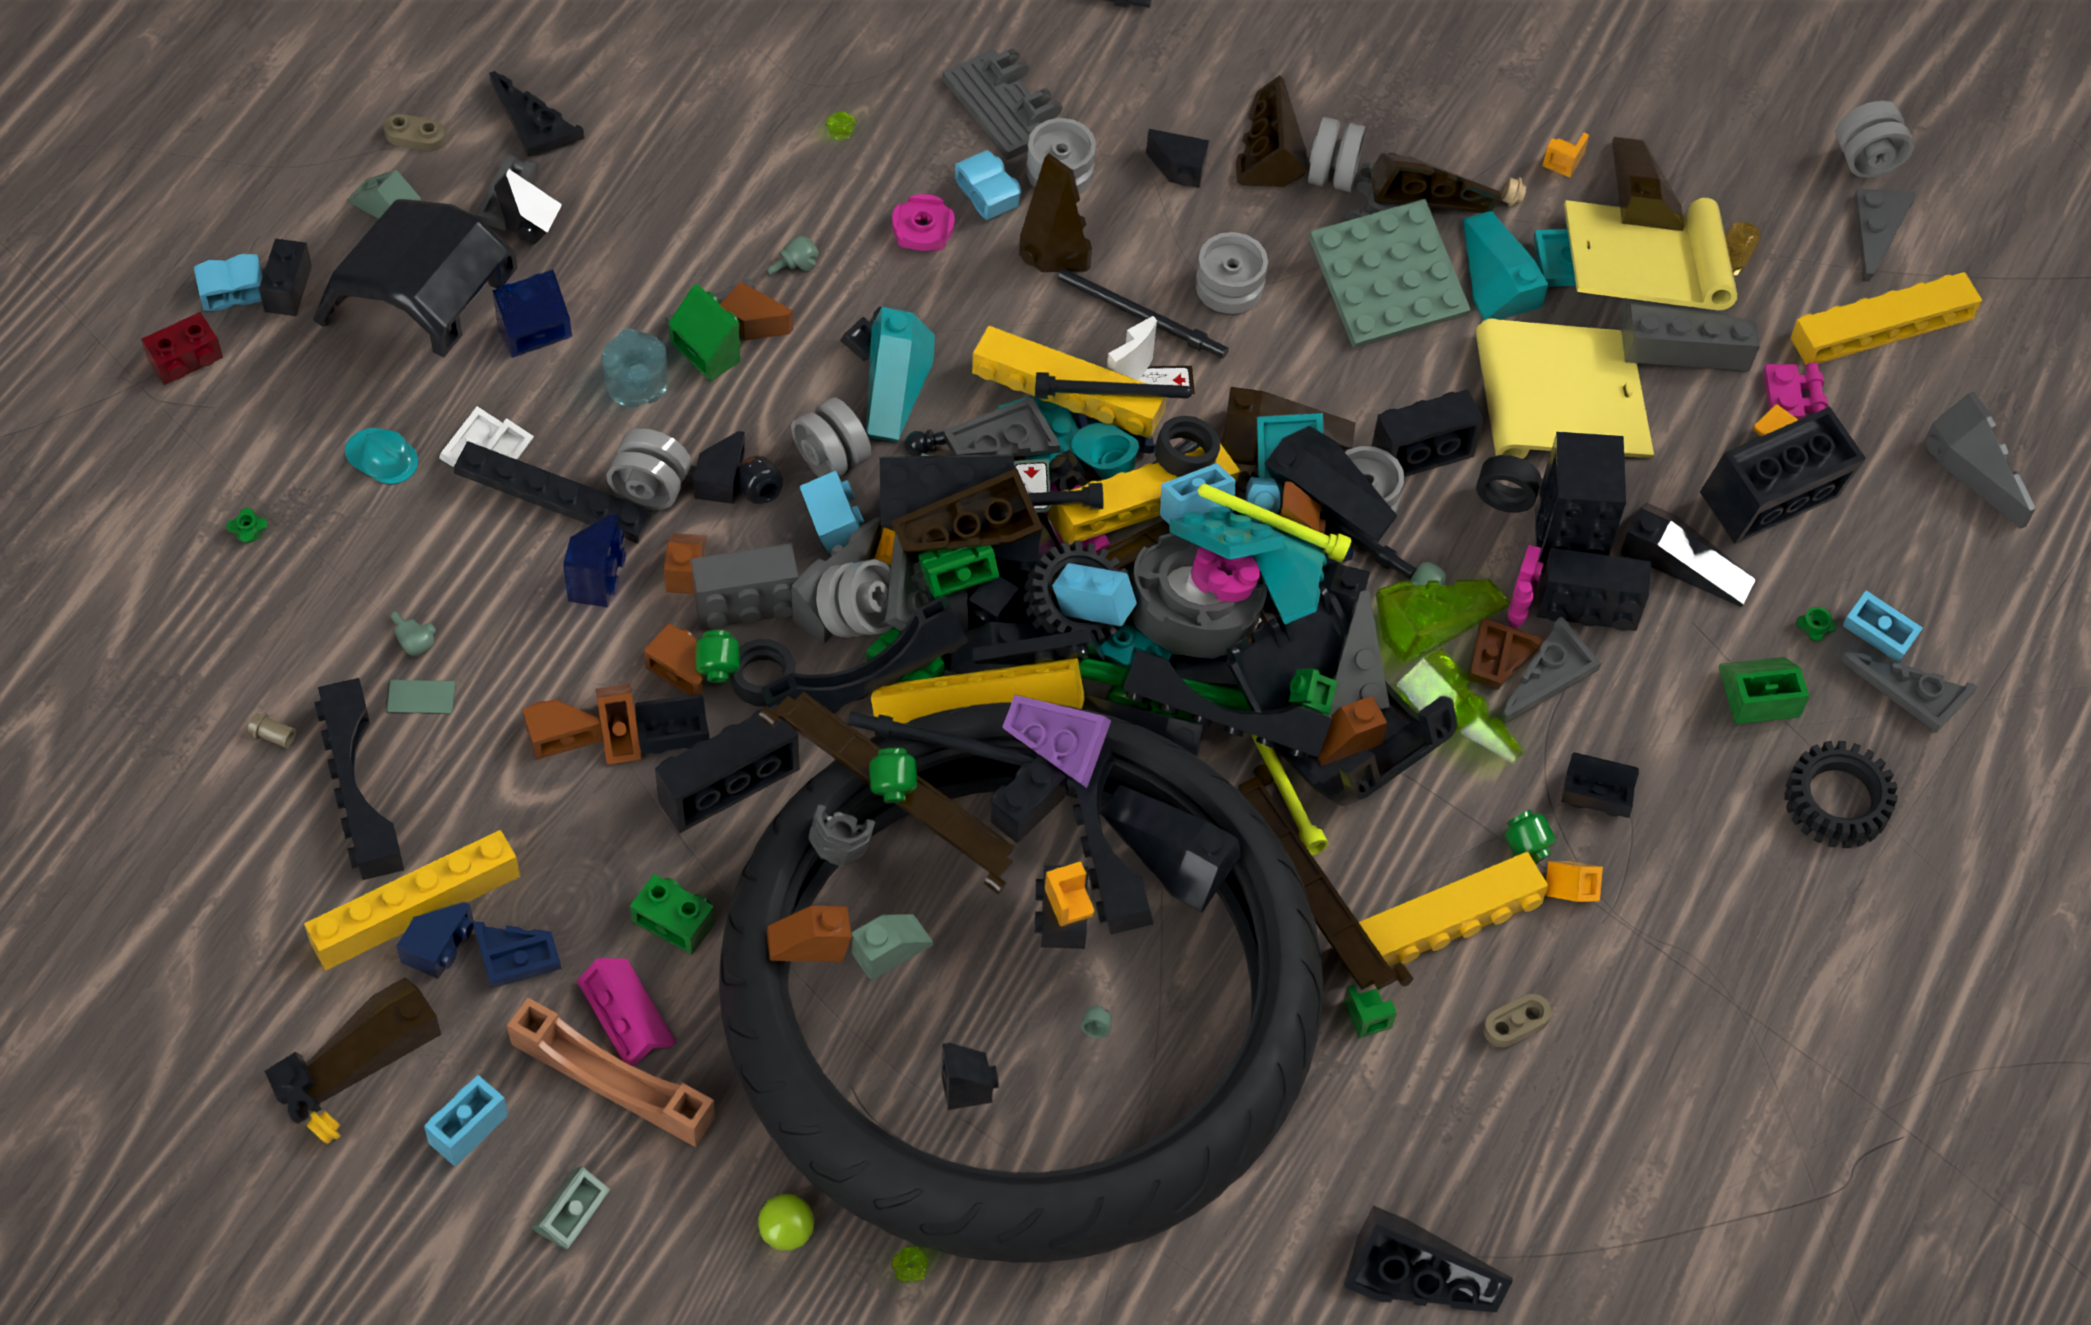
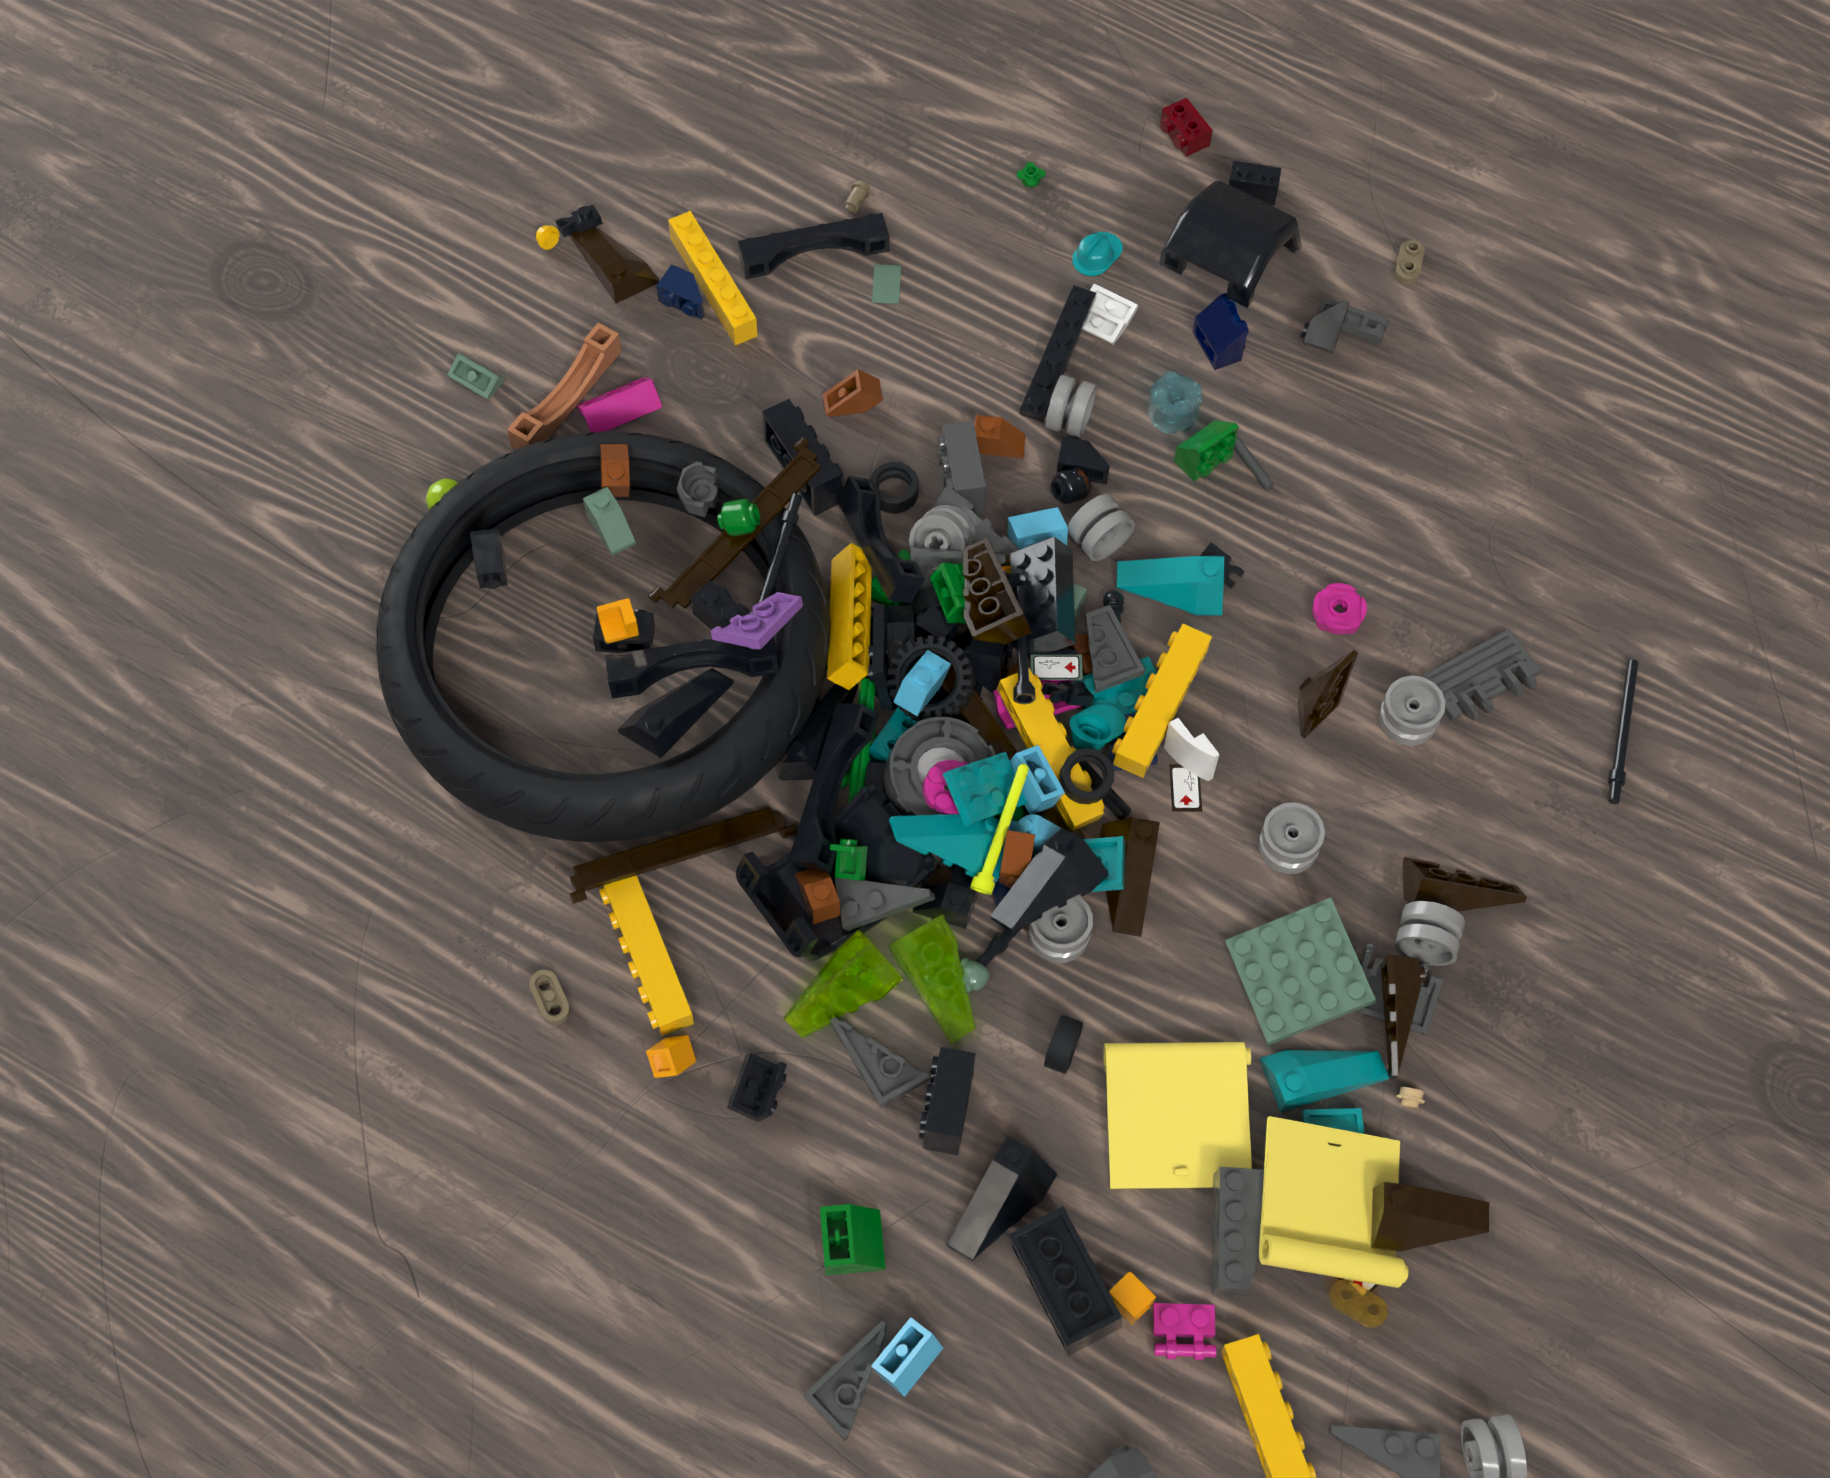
camera: 95 degrees right, 5 degrees up
(229, 282) = (1249, 146): medium azure brick -> none
(380, 191) = (1335, 242): sand green slope -> none
(413, 637) = (932, 274): sand green piece -> none
(466, 1120) = (538, 309): medium azure brick -> none
(515, 953) = (669, 338): dark blue wing -> none
(534, 122) = (1423, 339): black wing -> none
(558, 728) = (849, 353): dark orange slope -> none
(594, 562) = (987, 374): clear blue slope -> none
(671, 723) = (847, 429): black bracket -> none
(673, 659) = (904, 433): dark orange slope -> none
(673, 913) = (693, 424): green brick -> none
(717, 655) = (897, 448): green head -> none
(757, 313) = (1234, 482): dark orange slope -> none
(797, 253) = (1299, 518): sand green piece -> none
(840, 125) = (1443, 558): clear neon green plate -> none
(987, 184) = (1383, 656): medium azure brick -> none
(1048, 386) = (1146, 672): black piece -> none
(1096, 1022) = (531, 652): sand green hinge -> none
(1178, 156) = (1424, 811): black slope -> none
(1196, 338) = (1227, 811): black bar -> none
(1311, 836) = (727, 859): neon yellow piece -> none
(1368, 1011) = (563, 886): green panel -> none
(1412, 1264) = (361, 886): black wedge -> none
(1430, 432) = (1114, 978): black brick -> none
(1499, 653) = (896, 1024): reddish brown wing -> none
(1525, 587) = (953, 1038): dark pink plate -> none
(1531, 834) = (713, 1025): green head -> none
(1565, 156) = (1462, 1153): light orange panel -> none
(1581, 494) = (1019, 1082): black brick -> none
(1819, 616) = (922, 1297): green plate -> none
(1847, 830) = (724, 1262): black tyre -> none

